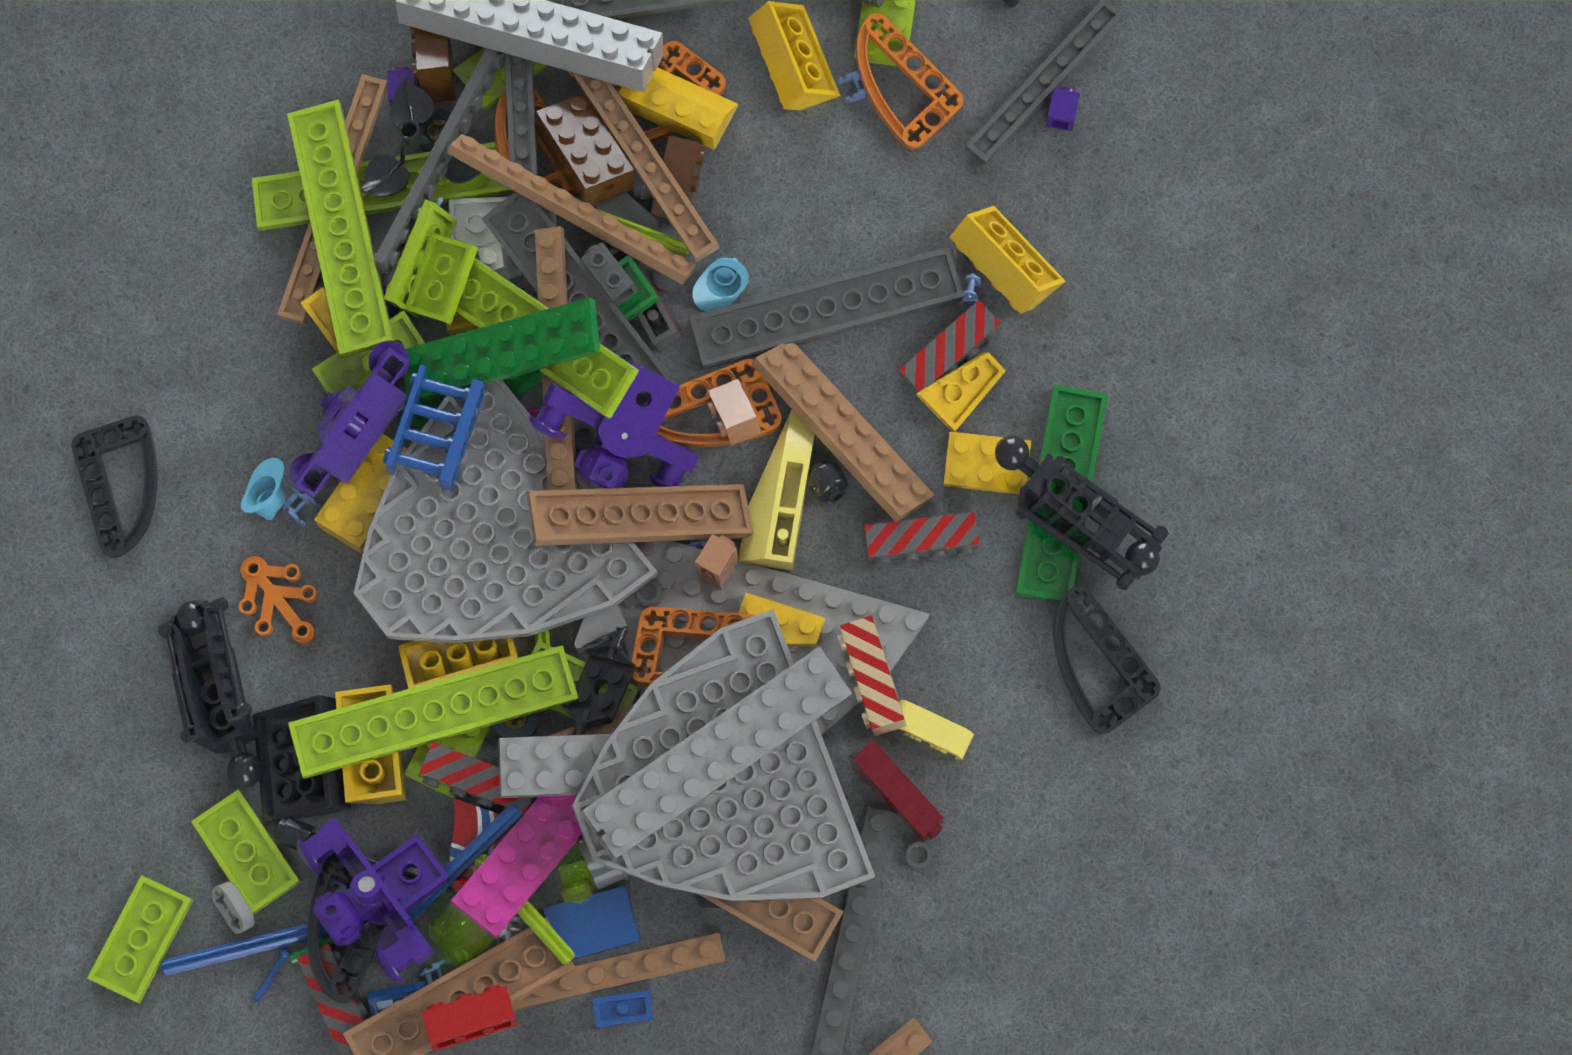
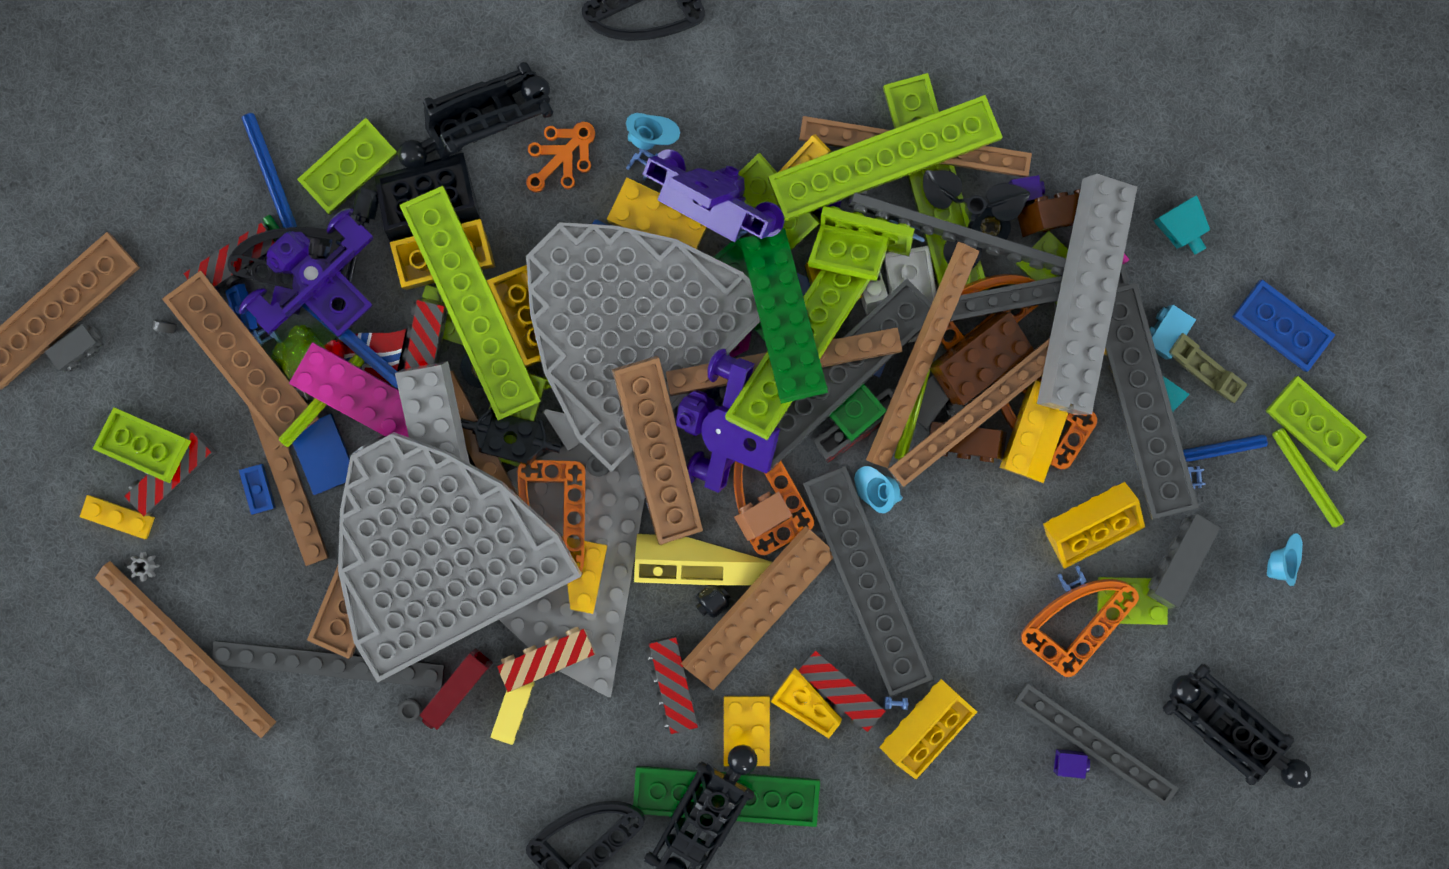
camera: 75 degrees right, 15 degrees up
(140, 939) = (267, 93): lime plate -> none
(233, 907) = (300, 163): light grey beam -> none
(284, 954) = (270, 210): blue hinge -> none
(455, 446) = (695, 286): blue fence -> none
(469, 1017) = (221, 370): red brick -> none
(576, 881) = (351, 438): clear neon green bracket -> none
(609, 274) = (865, 396): dark grey brick -> none
(715, 753) = (448, 546): light grey piece -> none
(717, 560) = (626, 520): nougat brick -> none

